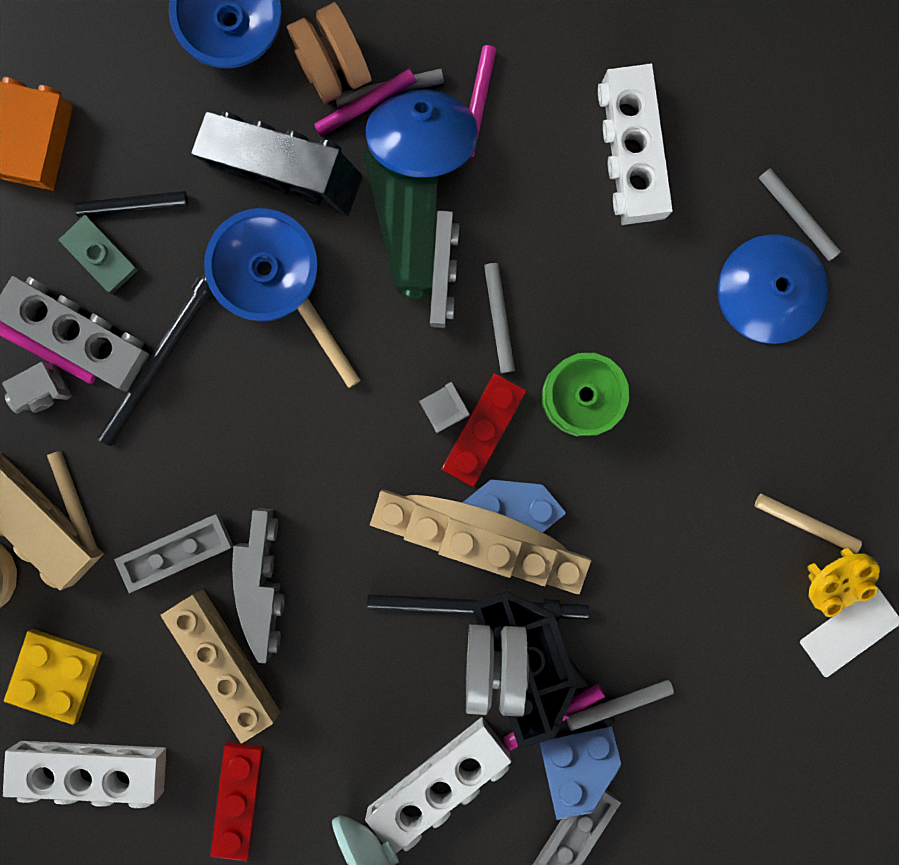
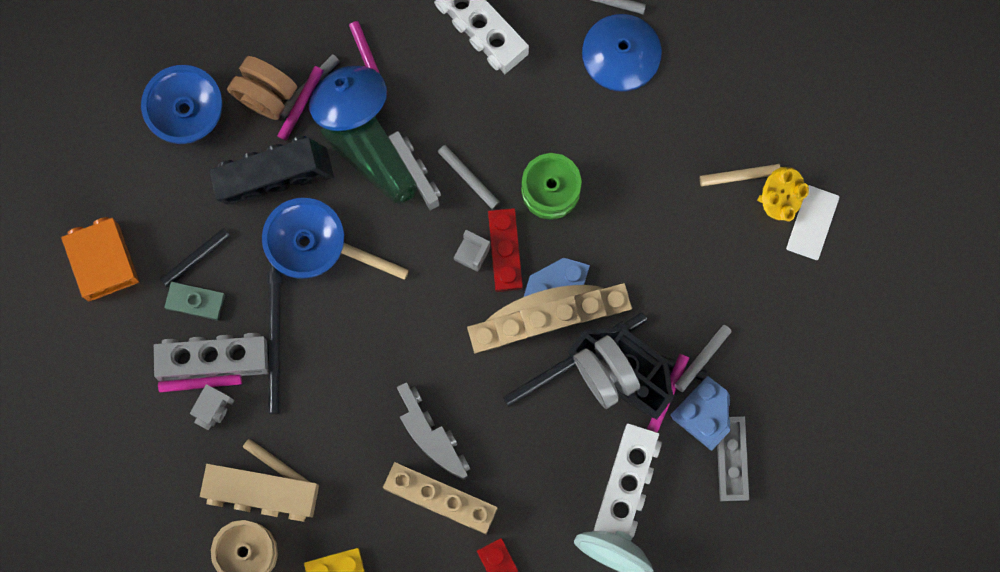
camera: 30 degrees left, 10 degrees down
(174, 553) = (364, 451): light grey plate -> none

